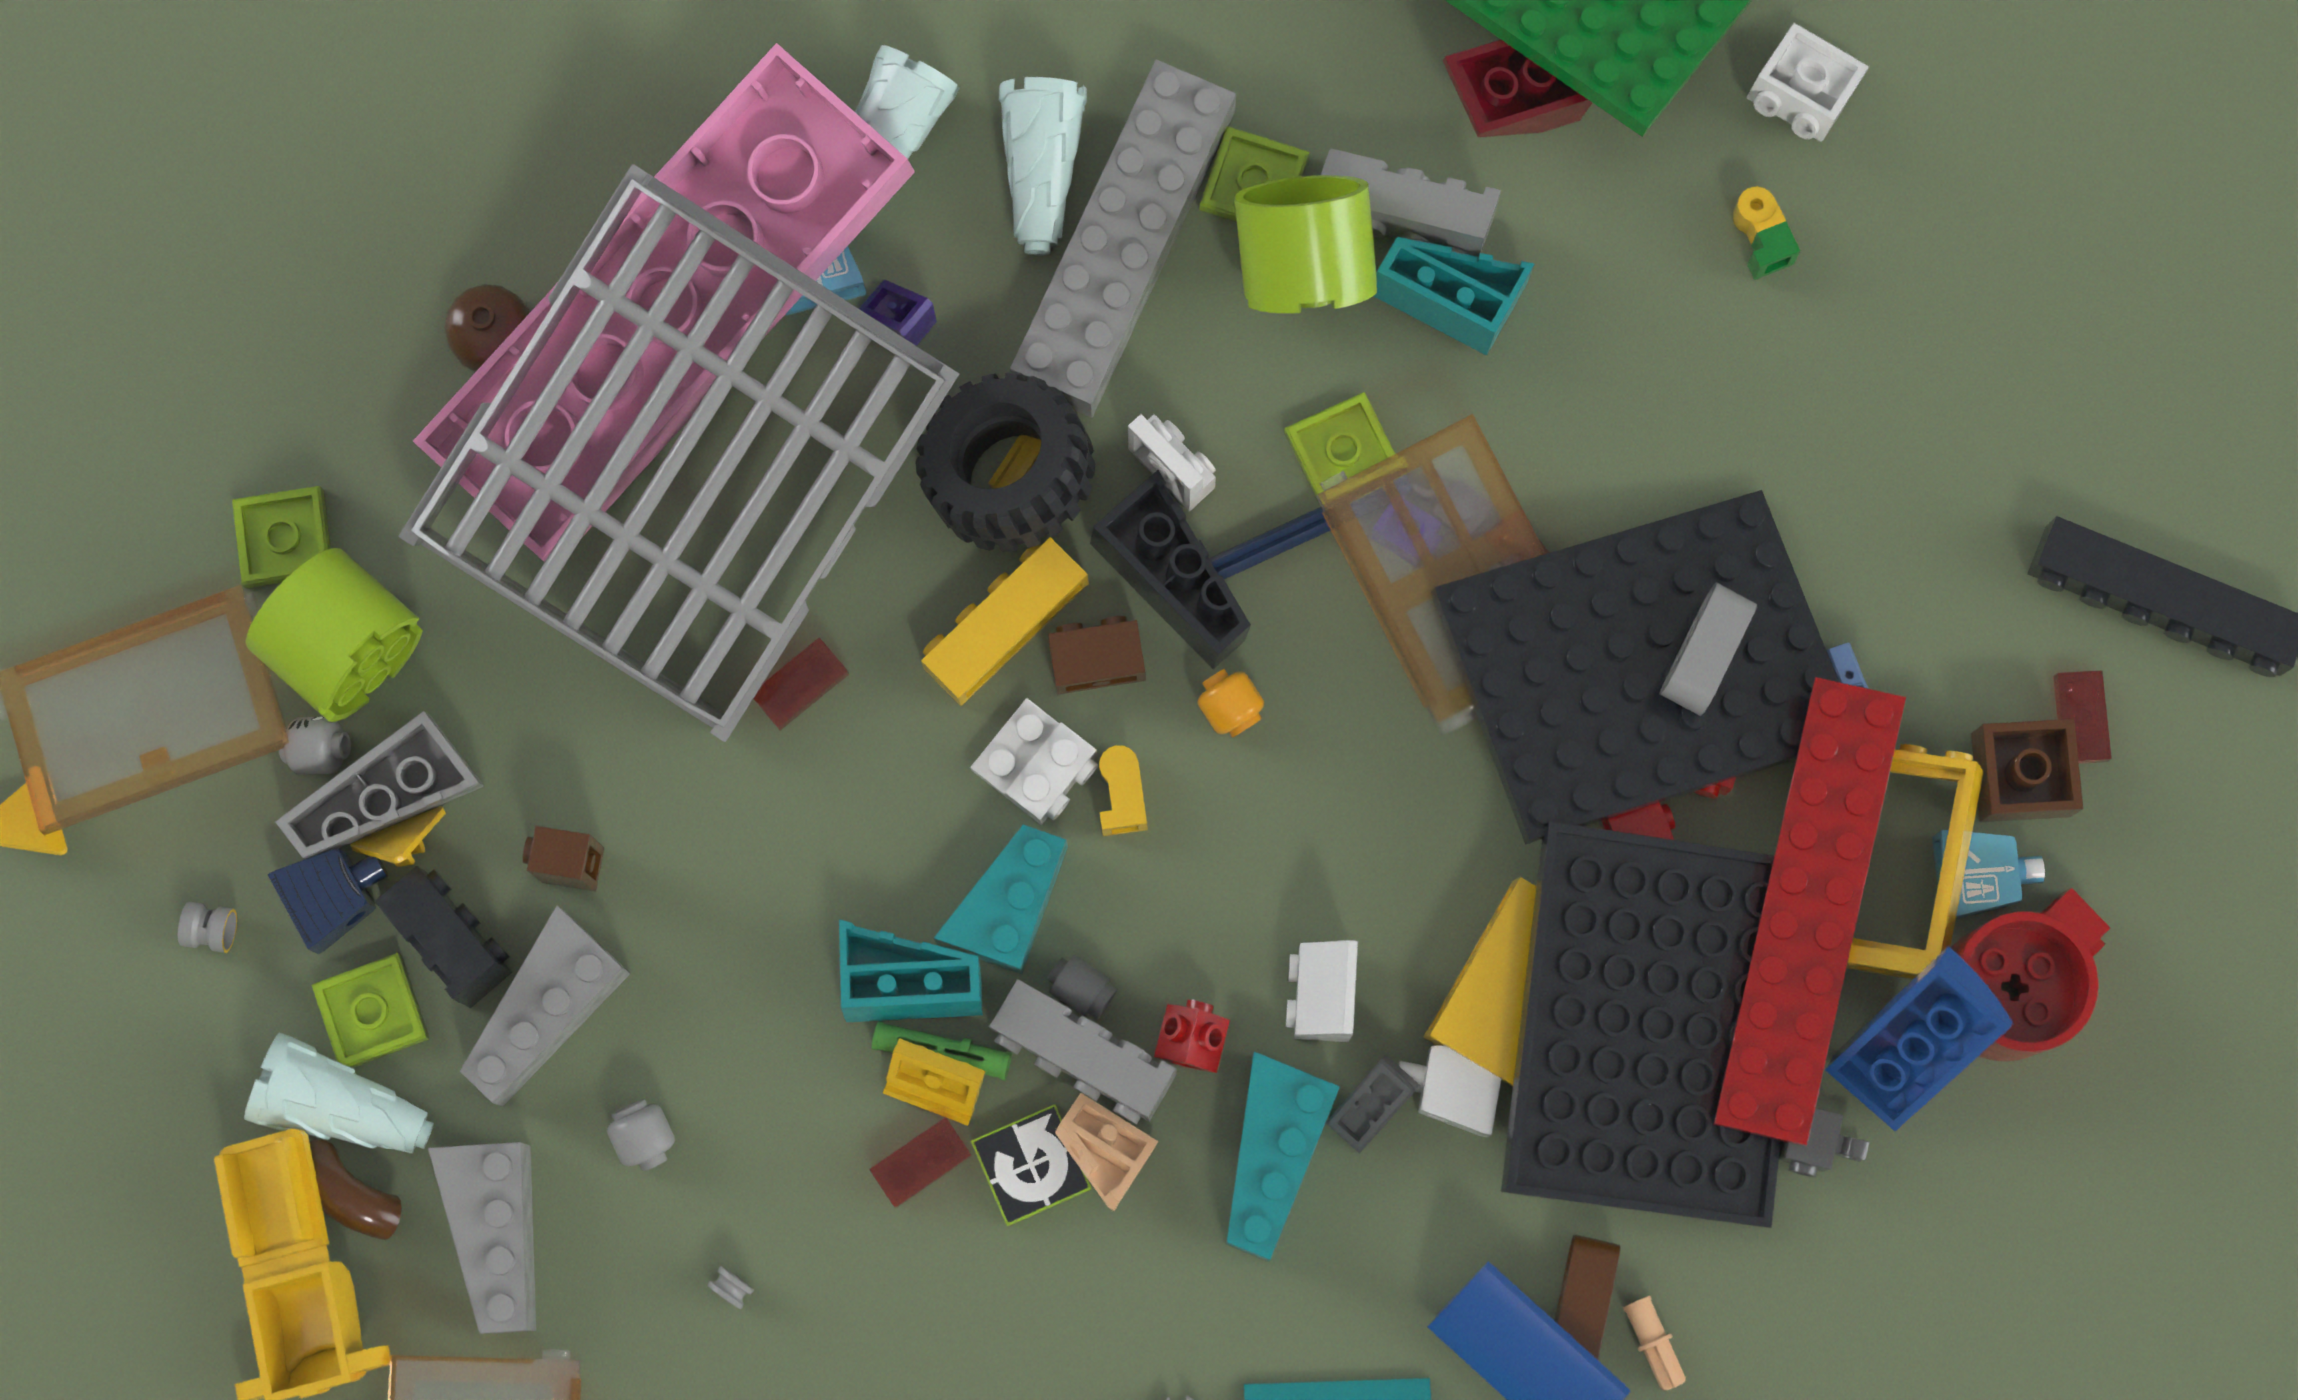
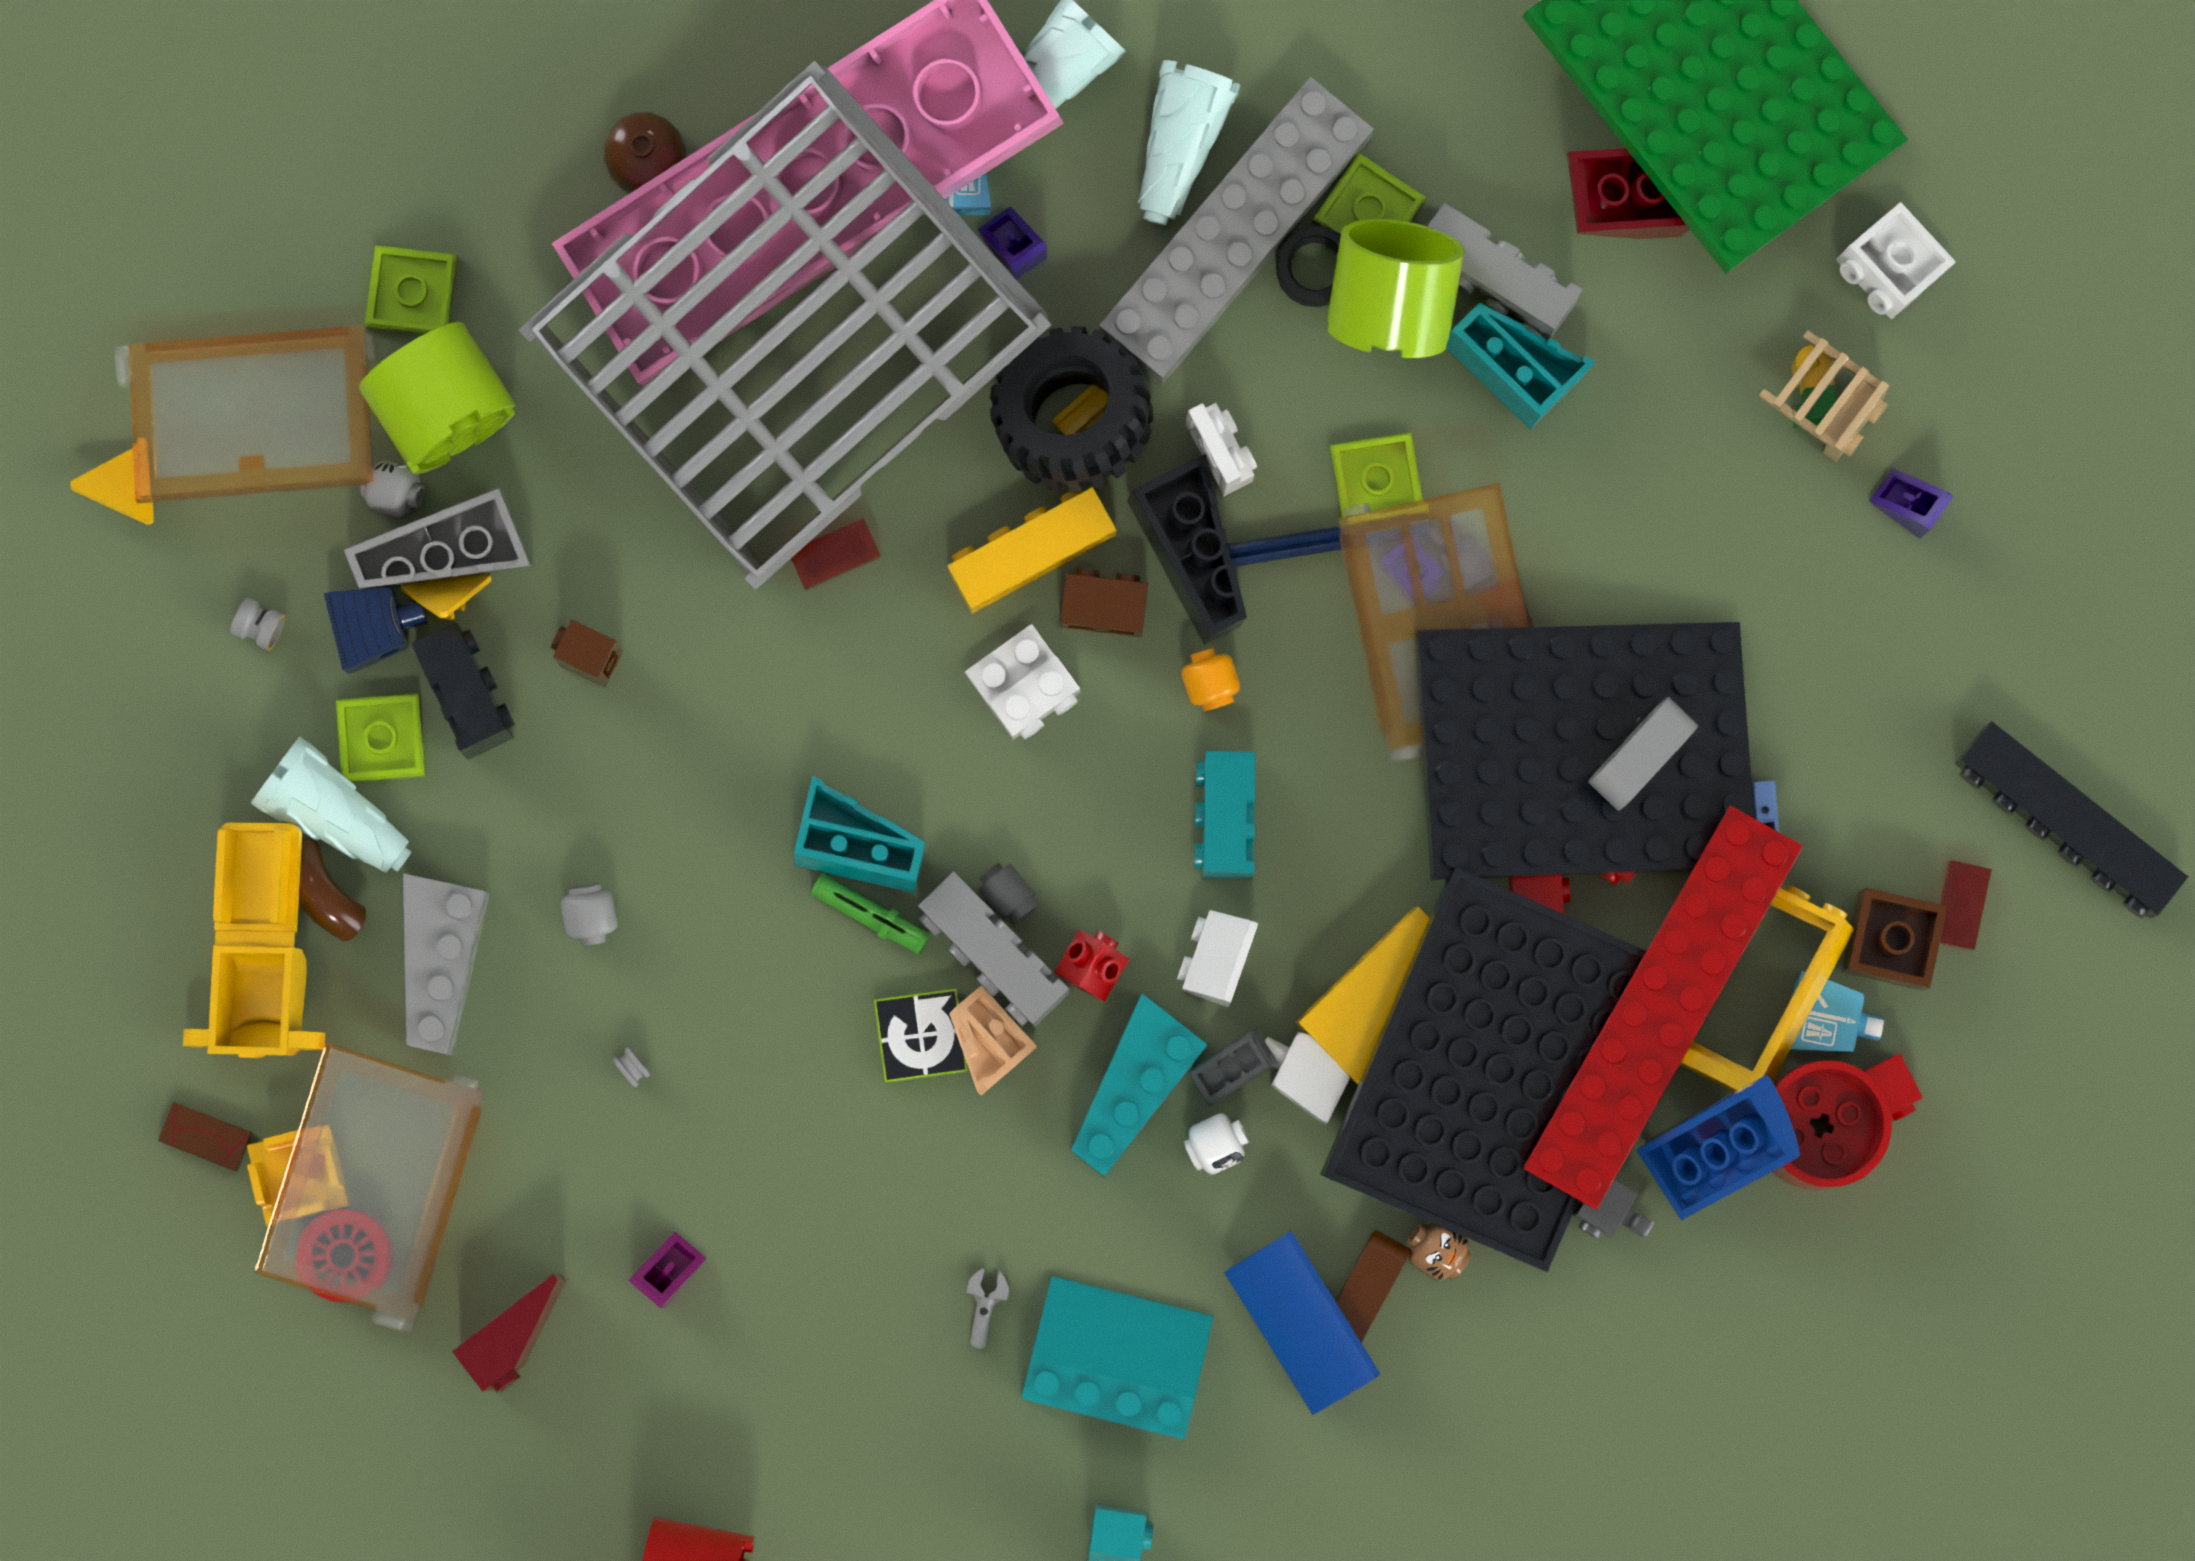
camera: 10 degrees right, 5 degrees up
(544, 1005) = (540, 772): light grey wedge -> none
(920, 1162) = (825, 1006): clear red plate -> none
(933, 1081) = (856, 939): yellow plate -> none
(1007, 902) = (964, 801): teal wedge -> none
(1122, 775) = (1096, 715): yellow leg -> none
(1205, 283) = (1294, 242): none -> black tyre
(1288, 839) = (1226, 815): none -> teal wedge
(1379, 1191) = (1216, 1144): none -> white head
(1649, 1238) = (1438, 1251): none -> medium nougat head
(1655, 1343) = (1417, 1342): light nougat axle -> none
(1813, 238) = (1856, 405): none -> tan plate
(1901, 318) = (1910, 501): none -> dark purple slope

